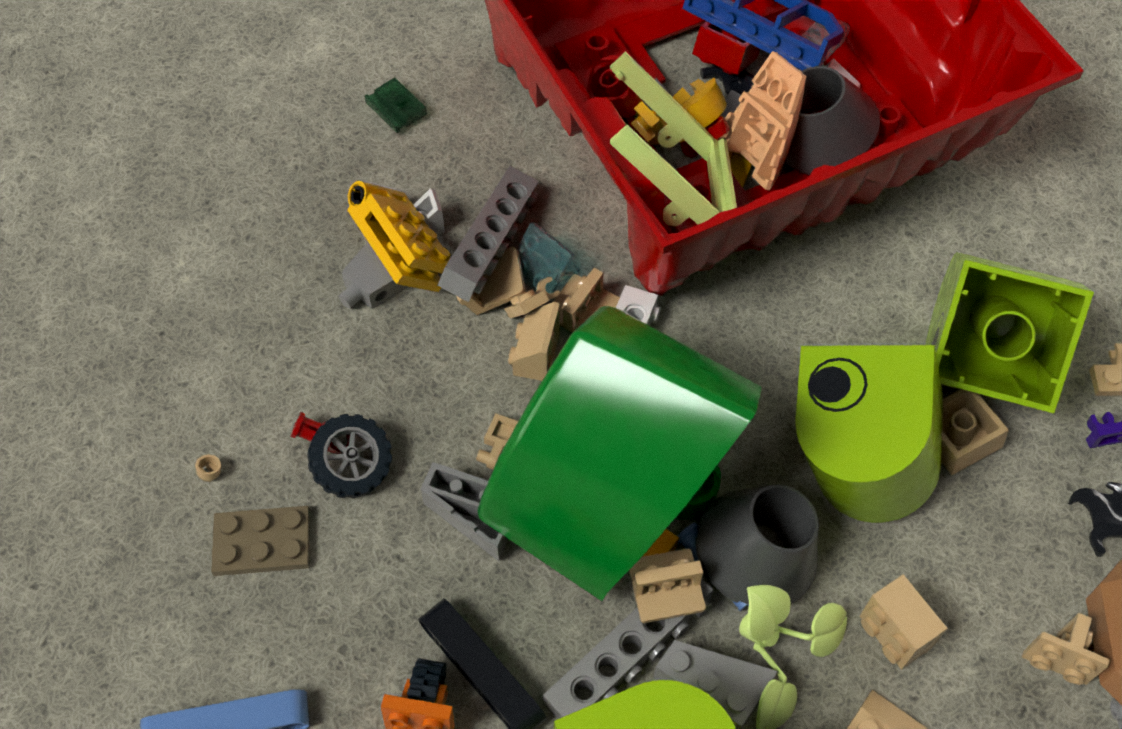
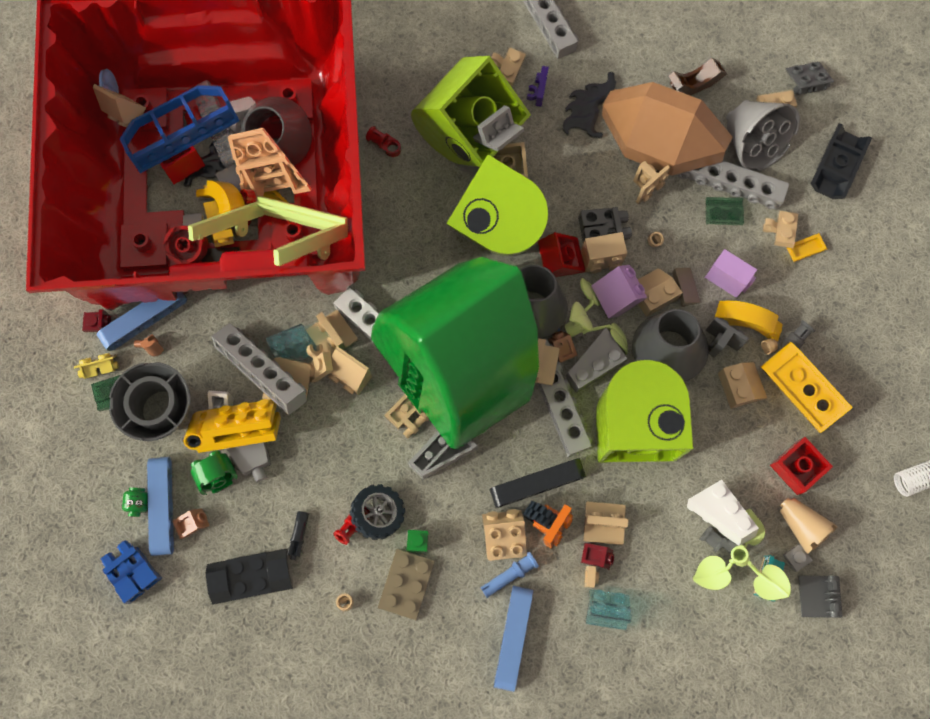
camera: 70 degrees left, 15 degrees up
(171, 208) = (129, 564): none -> blue hips
(208, 339) = (248, 576): none -> black piece
(259, 247) = (190, 522): none -> nougat bracket
(263, 178) = (135, 502): none -> green head
(267, 207) = (160, 506): none -> medium blue beam
(284, 375) = (298, 535): none -> black piece
(326, 527) = (417, 541): none -> green brick
(329, 241) = (213, 472): none -> green brick
(332, 689) = (517, 570): none -> medium blue pin
(380, 647) = (504, 534): none -> tan bracket
(386, 116) = (135, 388): none -> dark grey cone
(415, 68) = (104, 363): none -> light yellow hinge
(472, 117) = (150, 345): none -> nougat piece
(477, 54) = (95, 320): none -> dark red bracket
(500, 93) = (136, 321): none -> medium blue beam
(717, 623) = (565, 344): none -> nougat bracket
(850, 671) = (619, 291): none -> lavender piece
(862, 562) = (561, 254): none -> red slope
(902, 265) = (383, 141): none -> red connector
(958, 609) = (603, 222): none -> dark grey hips
(982, 706) = (657, 237): none -> tan hinge
(996, 368) = (498, 130): none -> light grey bracket

